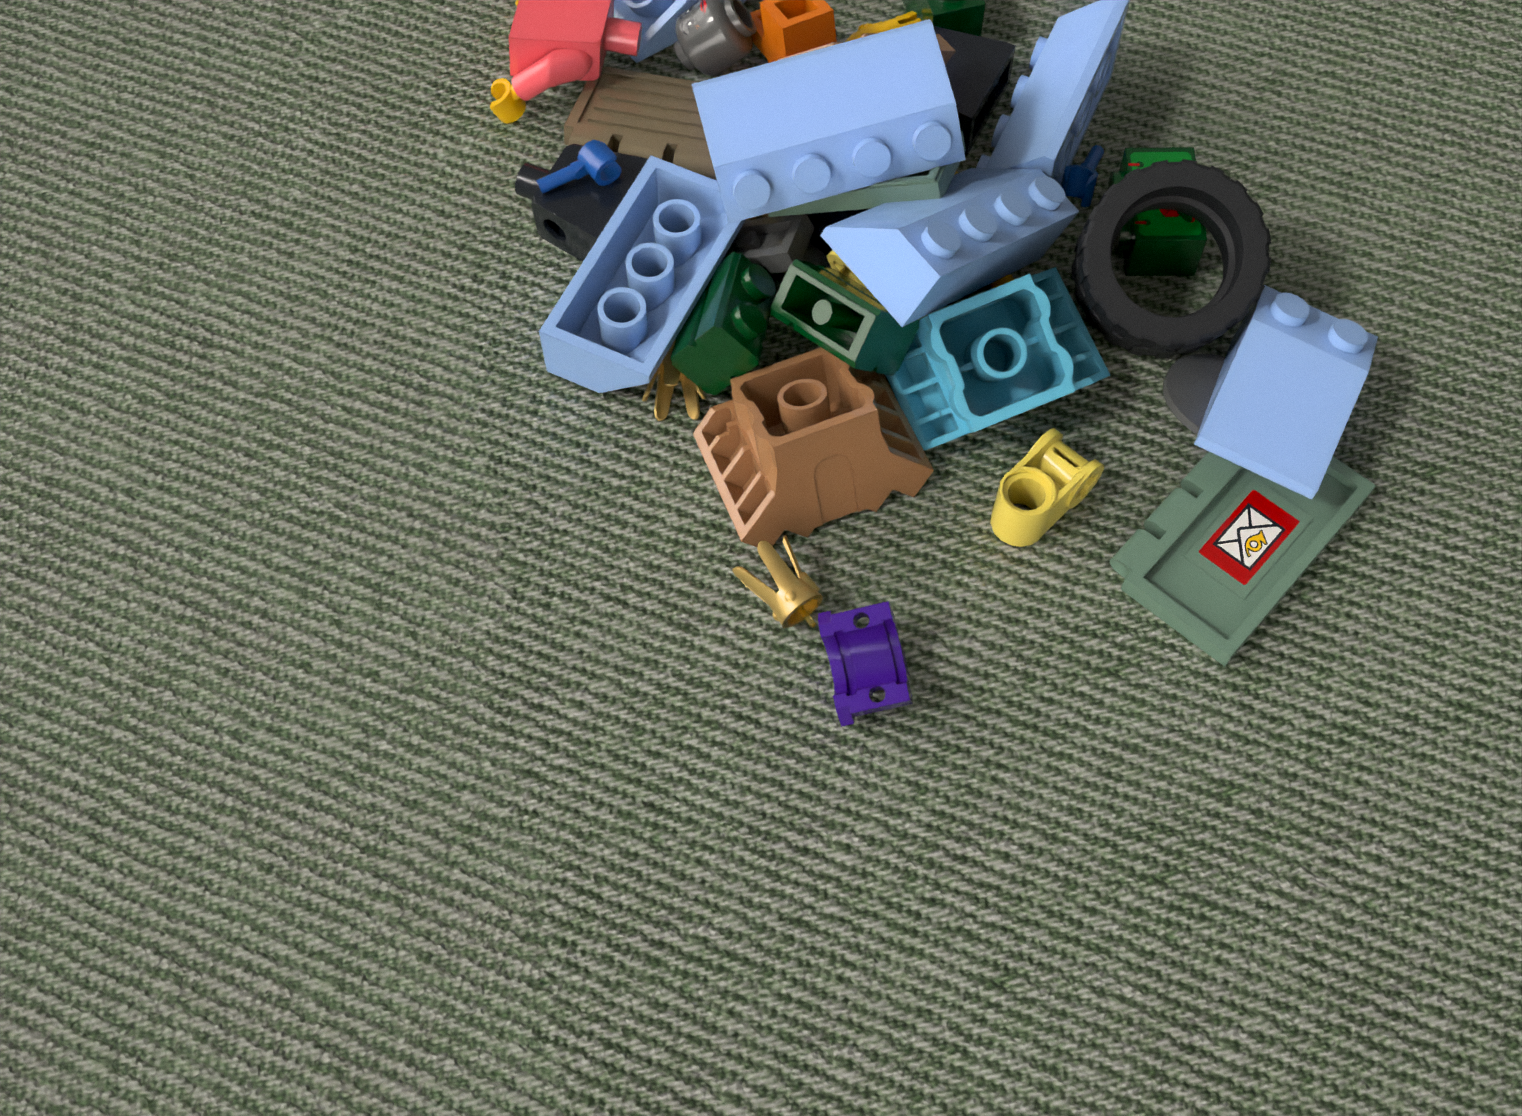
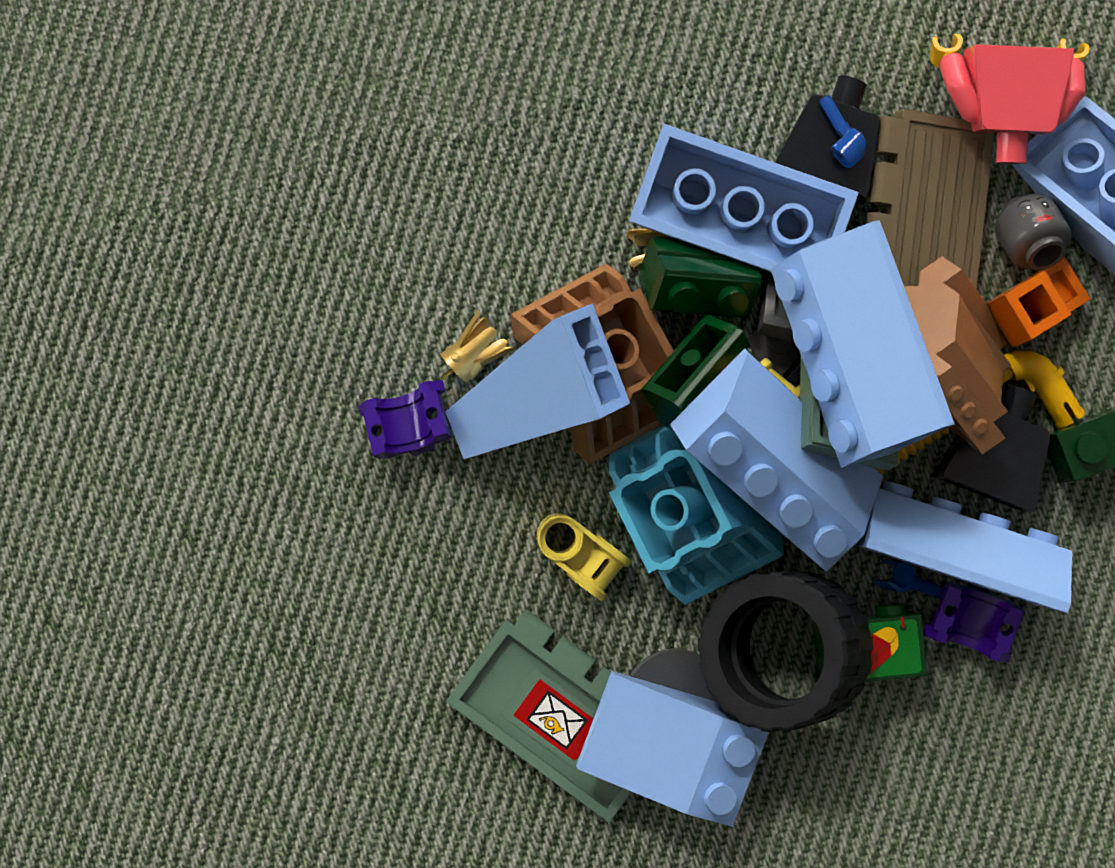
camera: 80 degrees right, 25 degrees up
(848, 471) = (542, 388): none -> light blue slope
(1131, 107) = (975, 620): none -> dark purple piece

